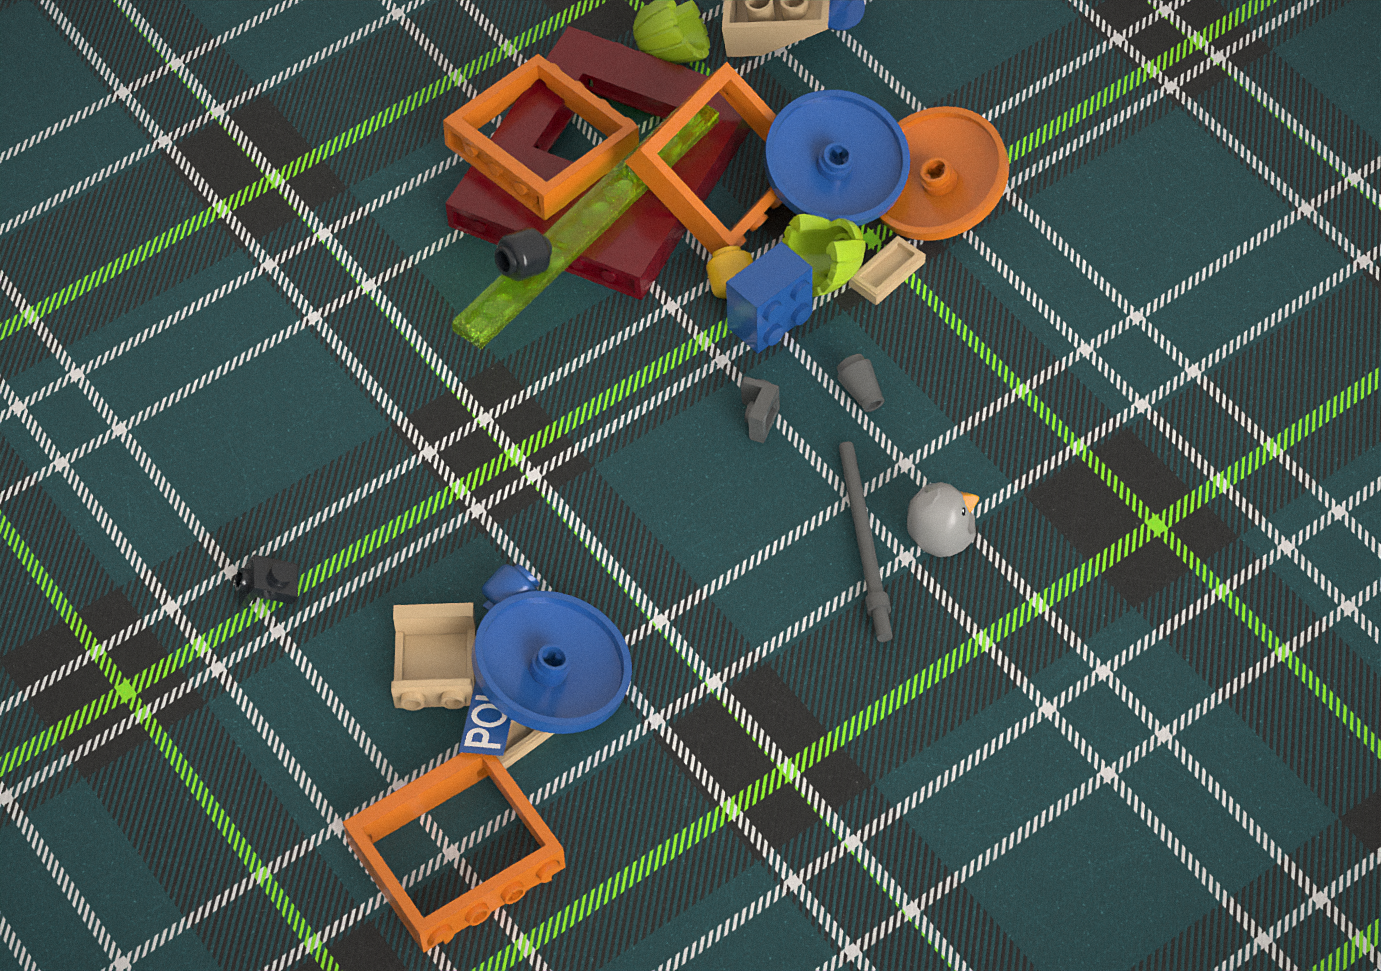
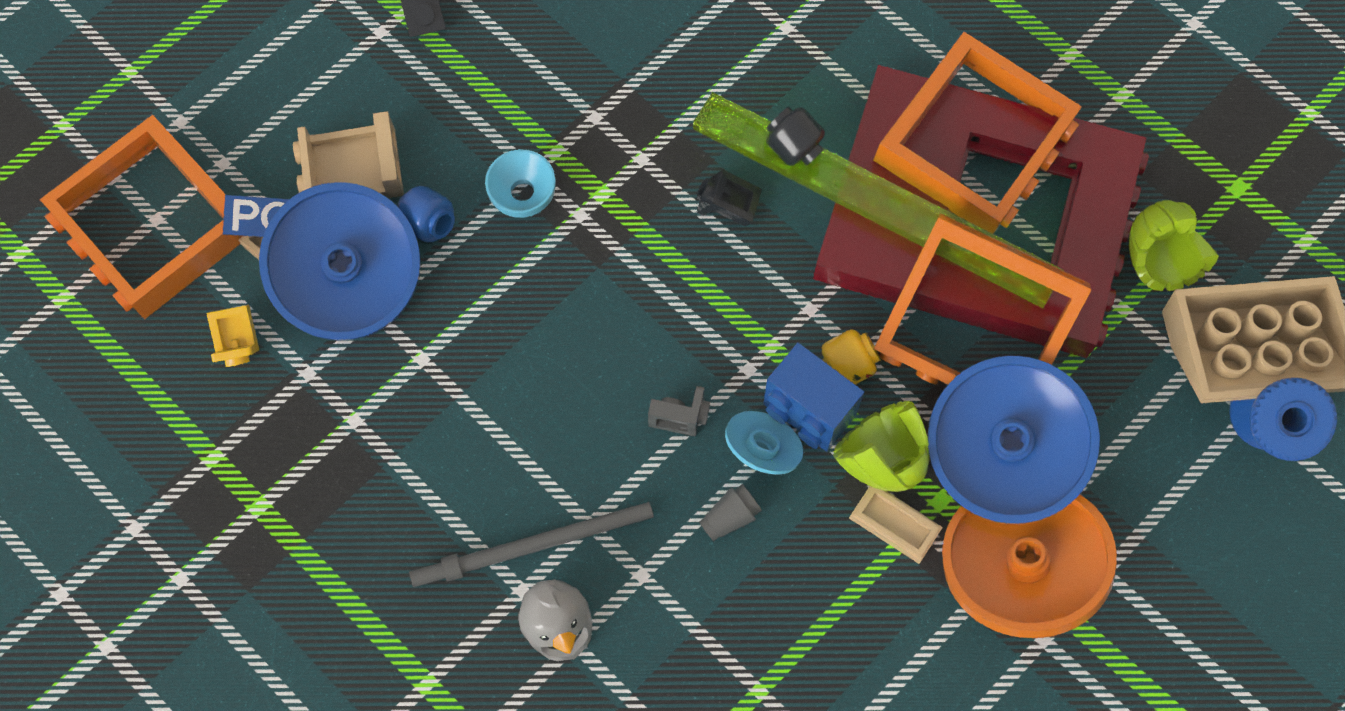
camera: 80 degrees right, 15 degrees up
(494, 494) = (515, 169): none -> medium azure piece
(546, 346) = (729, 197): none -> black bracket
(609, 771) = (233, 335): none -> yellow bracket
(801, 346) = (763, 442): none -> medium azure dish

